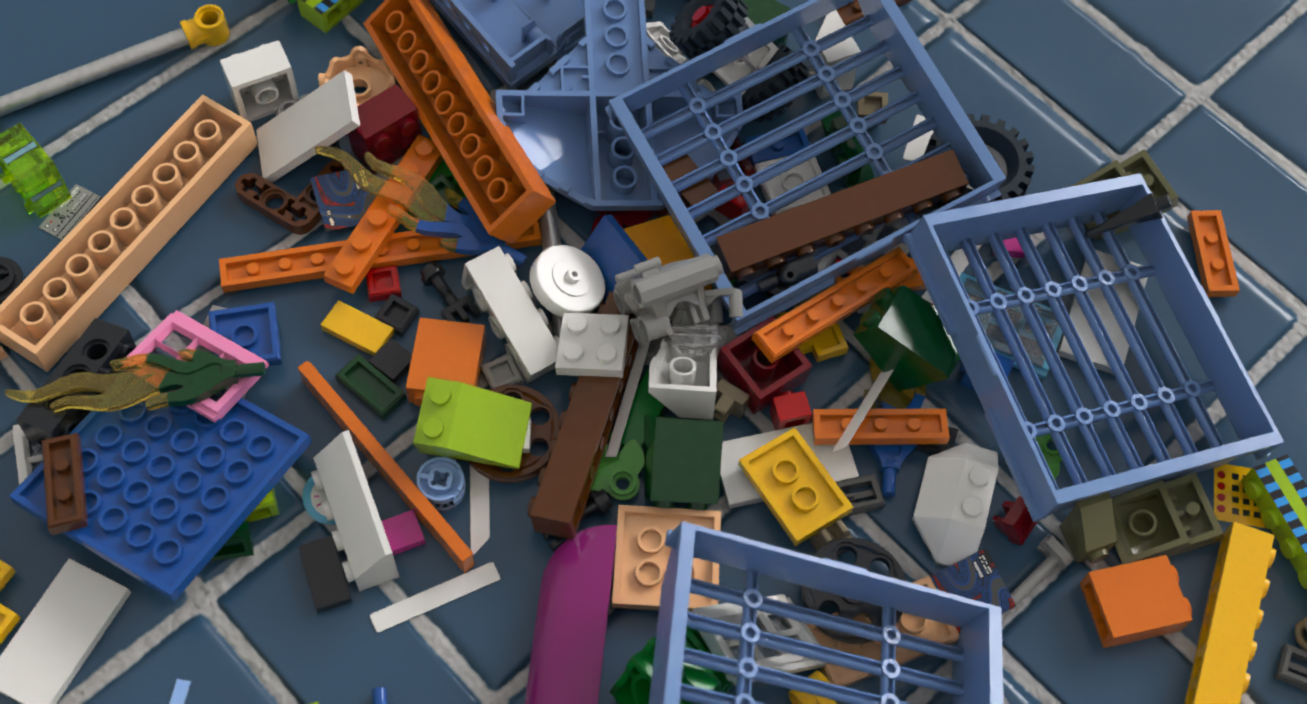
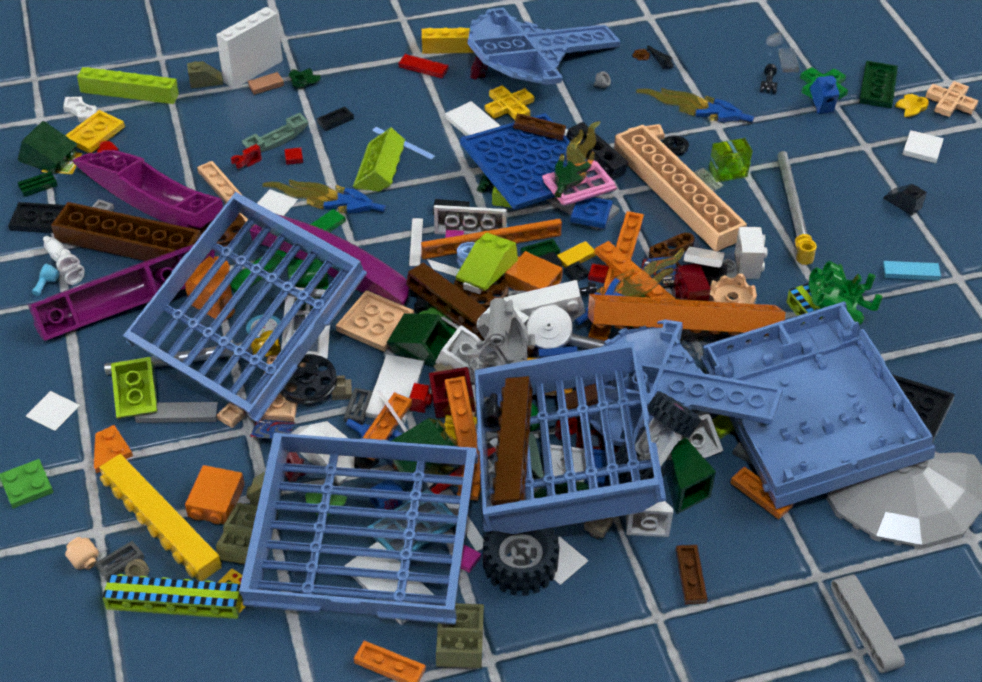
camera: 120 degrees right, 15 degrees down
(795, 486) = (374, 375): yellow plate -> none
(1142, 211) = (425, 591): black piece -> none

